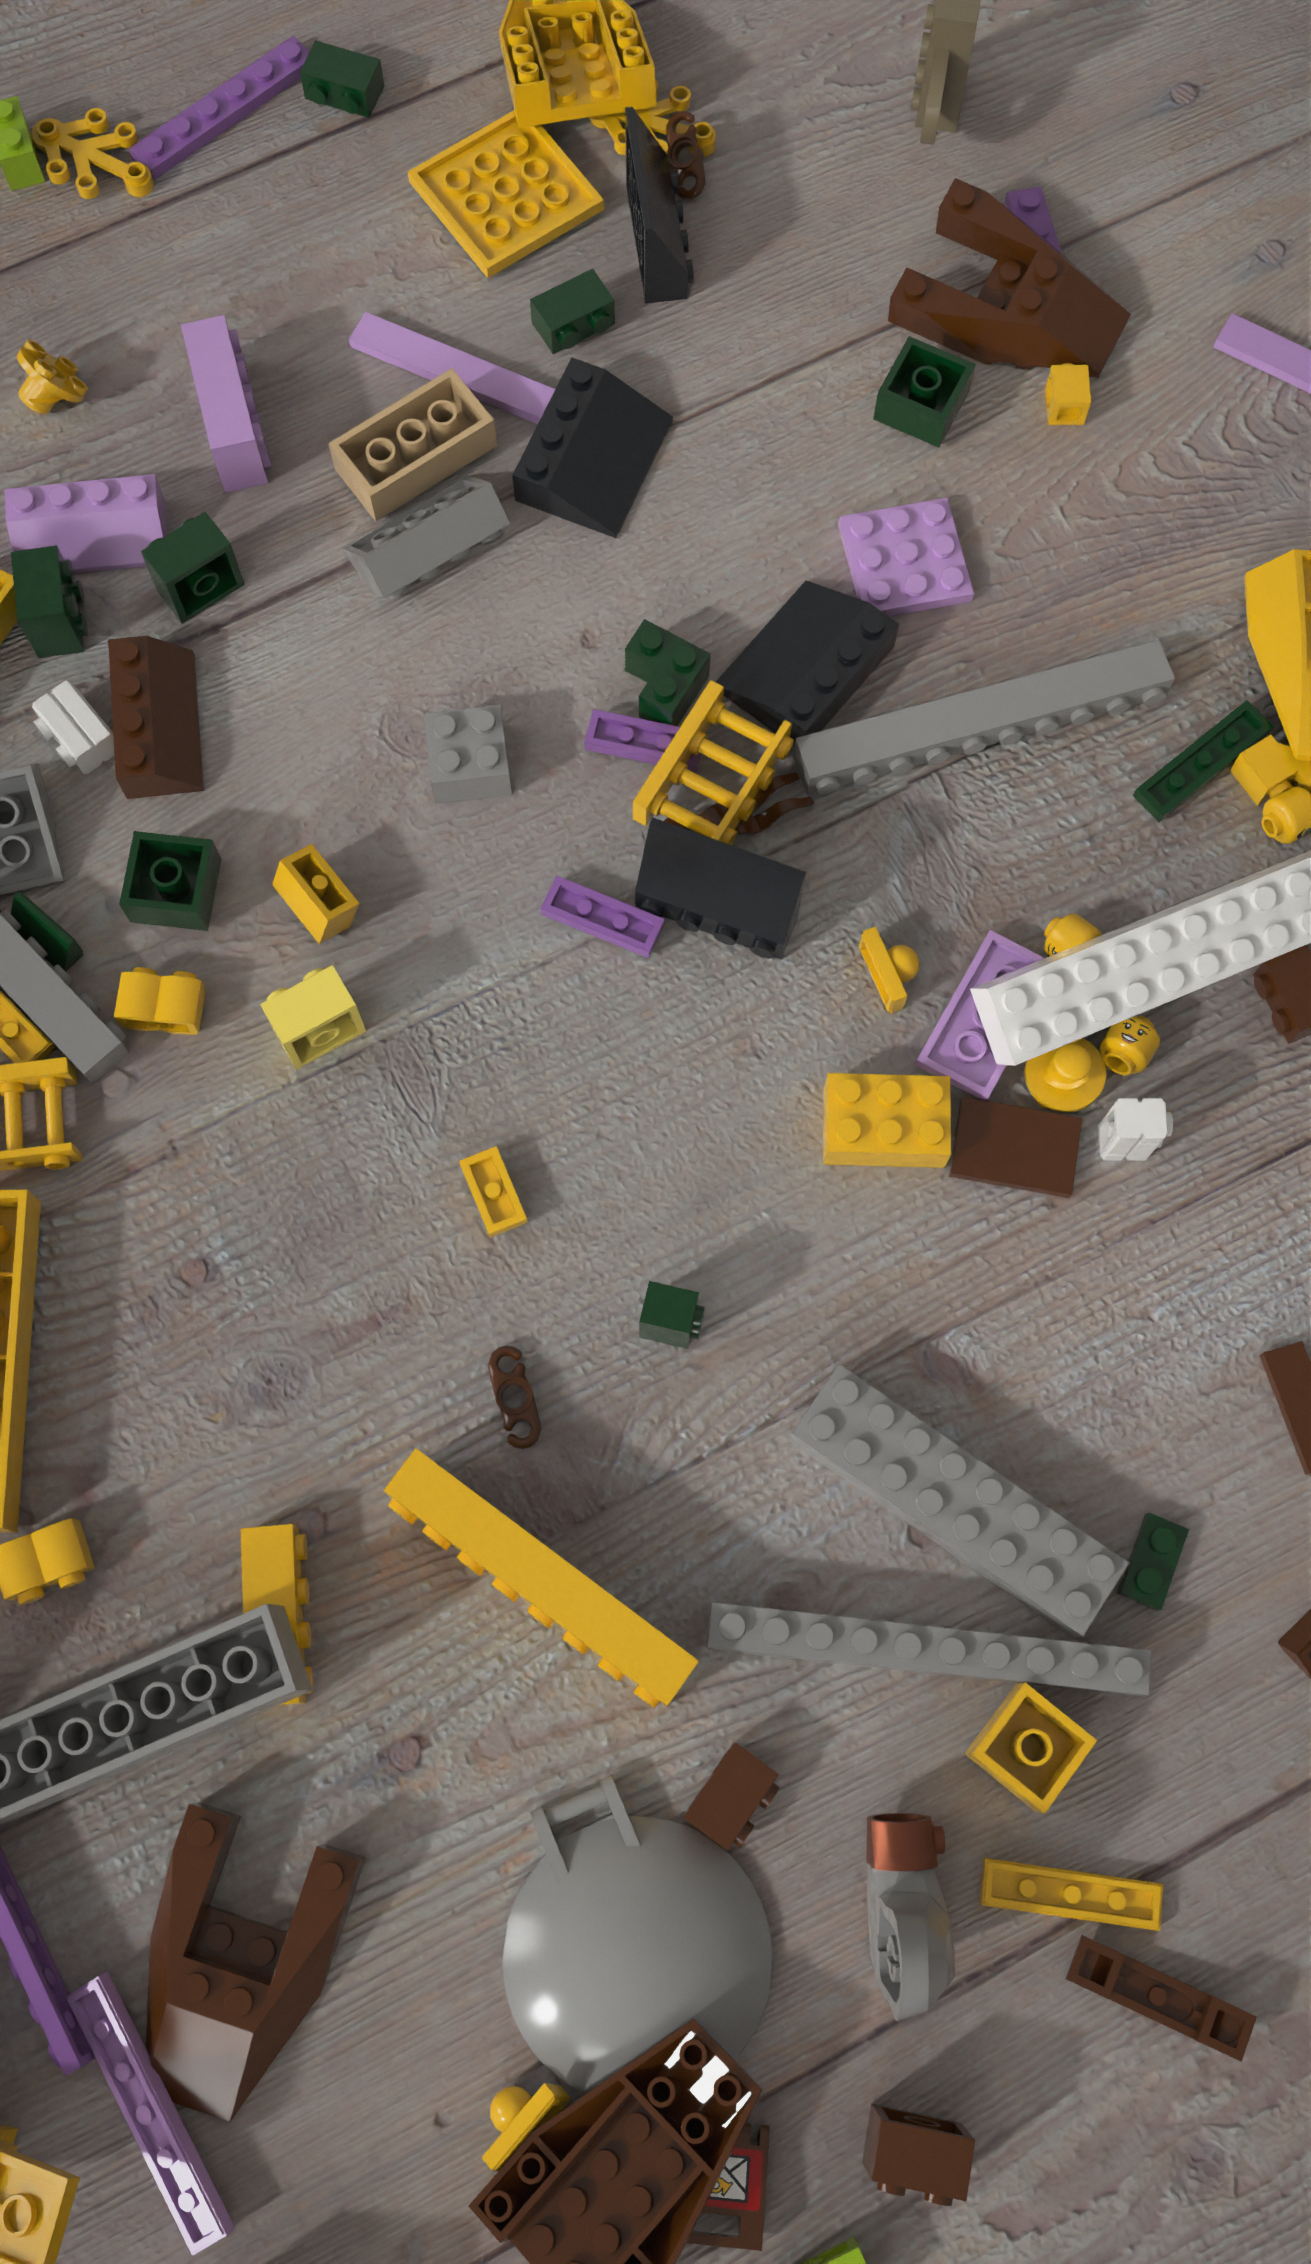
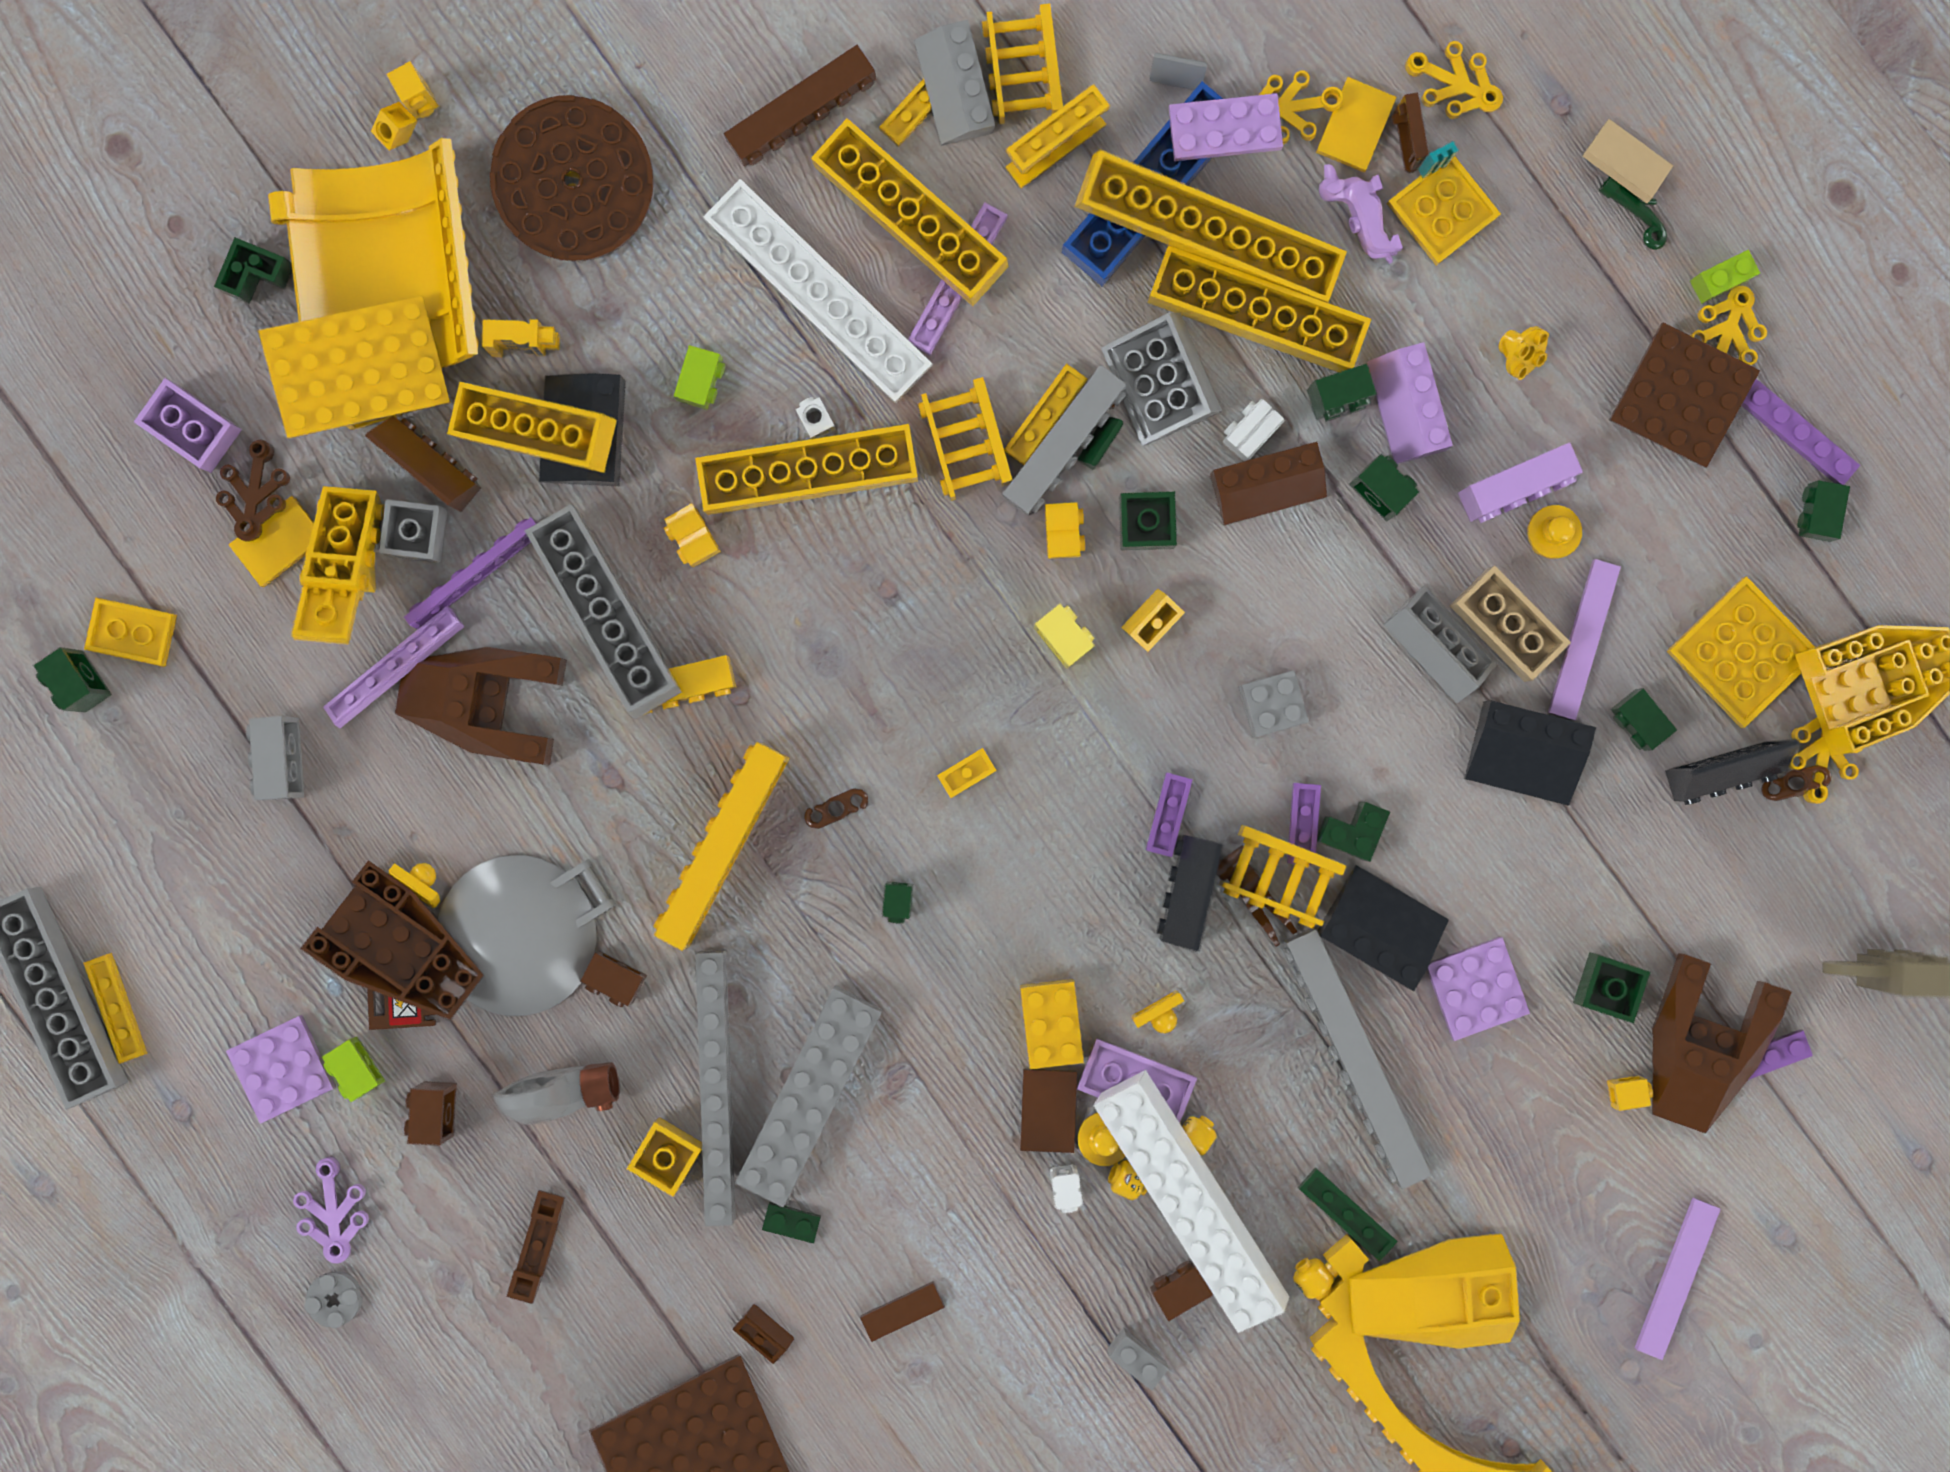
camera: 85 degrees right, 15 degrees up
(155, 208) = (1684, 395): none -> reddish brown plate
(302, 382) = (1554, 532): none -> yellow plate
(1071, 1894) = (588, 1189): yellow tile -> none

